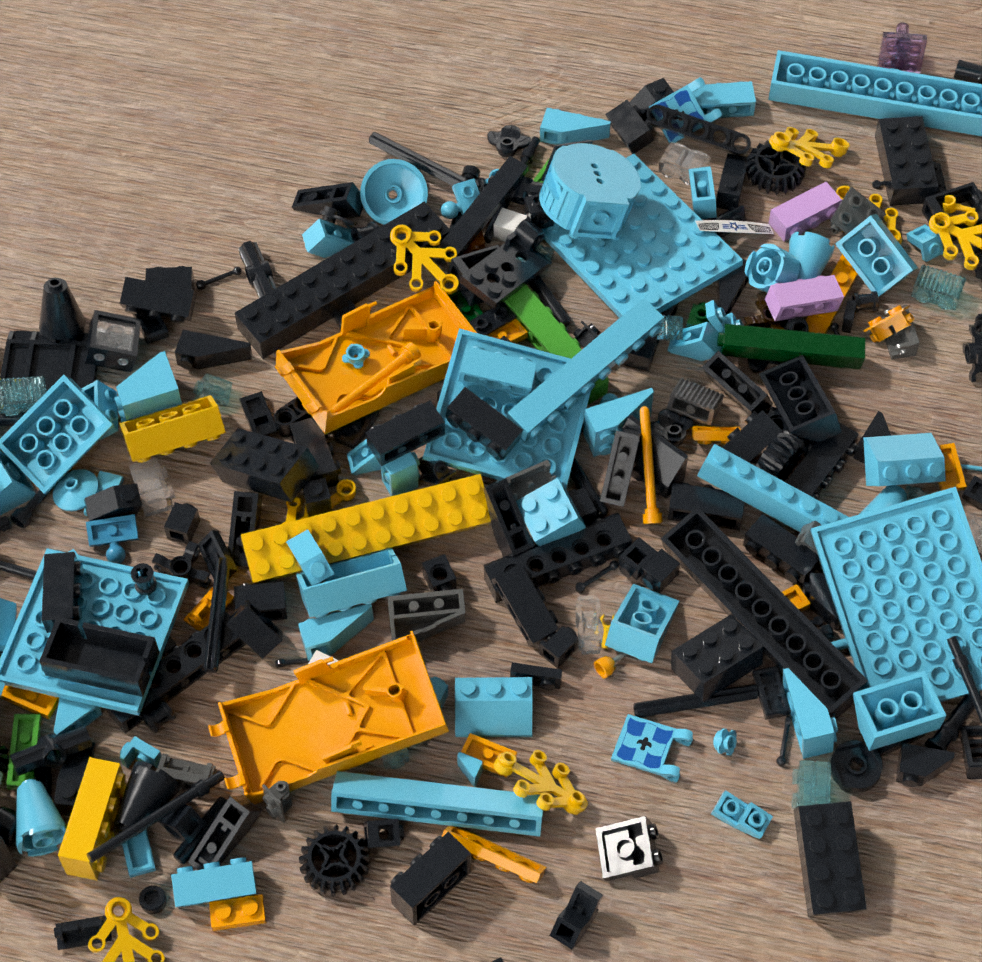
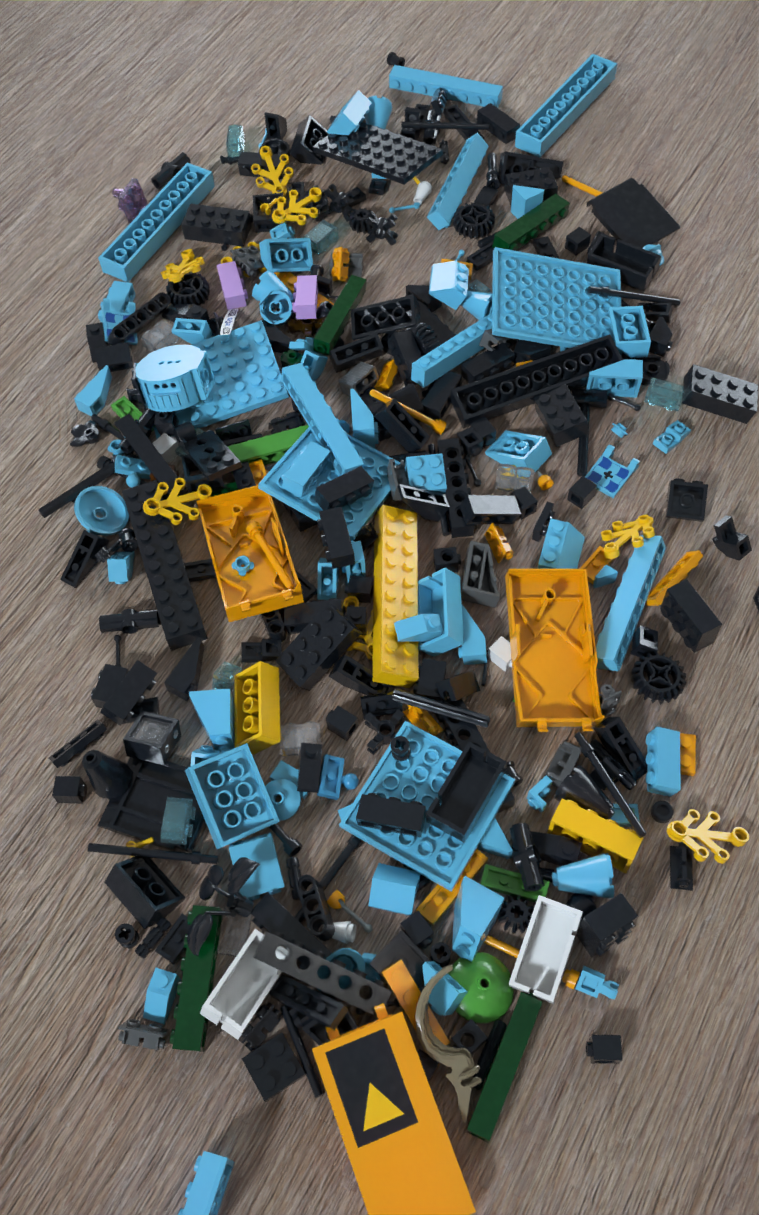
camera: 70 degrees left, 0 degrees up
(35, 283) = (69, 789): none -> black brick
(93, 277) = (78, 744): none -> black plate
(368, 487) = (360, 588): none -> black brick
(496, 626) = (495, 538): none -> light orange hinge
(562, 289) = (234, 430): none -> black hinge
(600, 714) = (582, 492): none -> black brick

